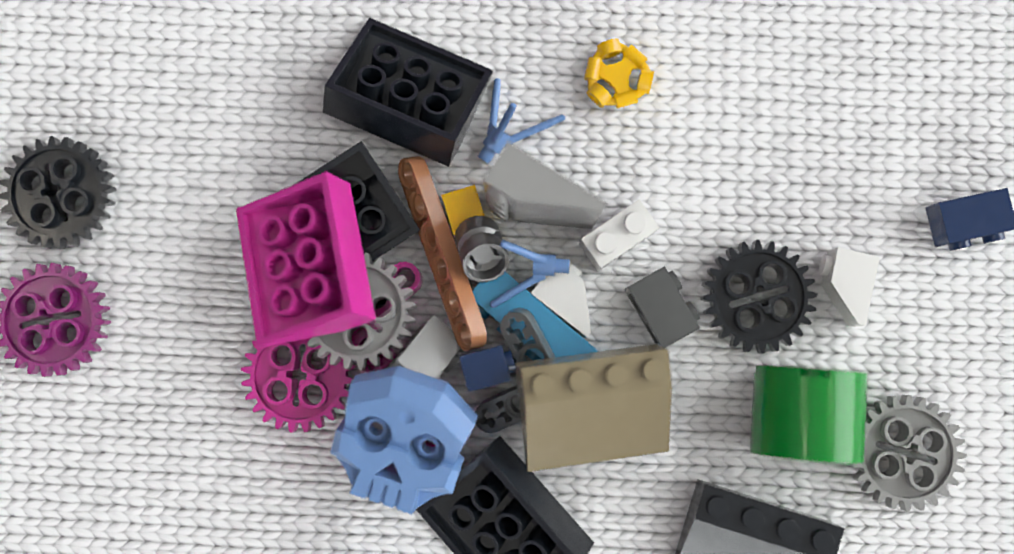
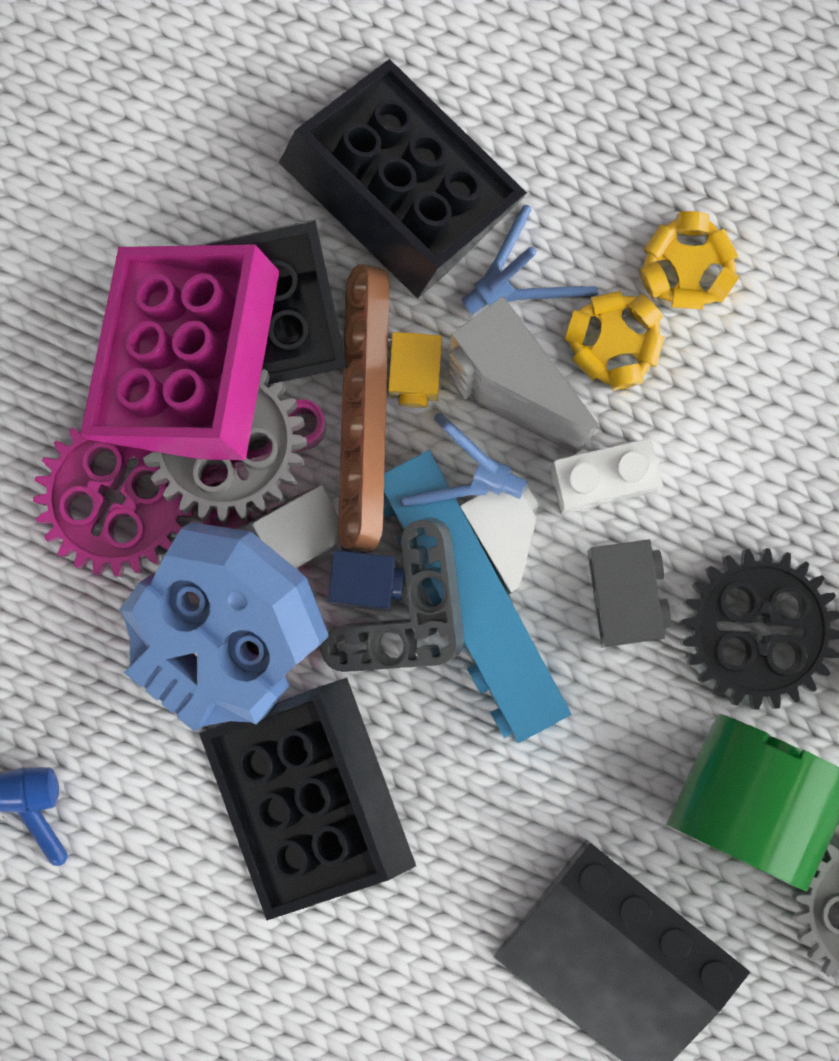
camera: 20 degrees right, 0 degrees up
(480, 249) = (415, 423): flat silver wheel -> none
(589, 142) = (616, 338): none -> yellow piece
(595, 406) = (485, 685): dark tan slope -> none

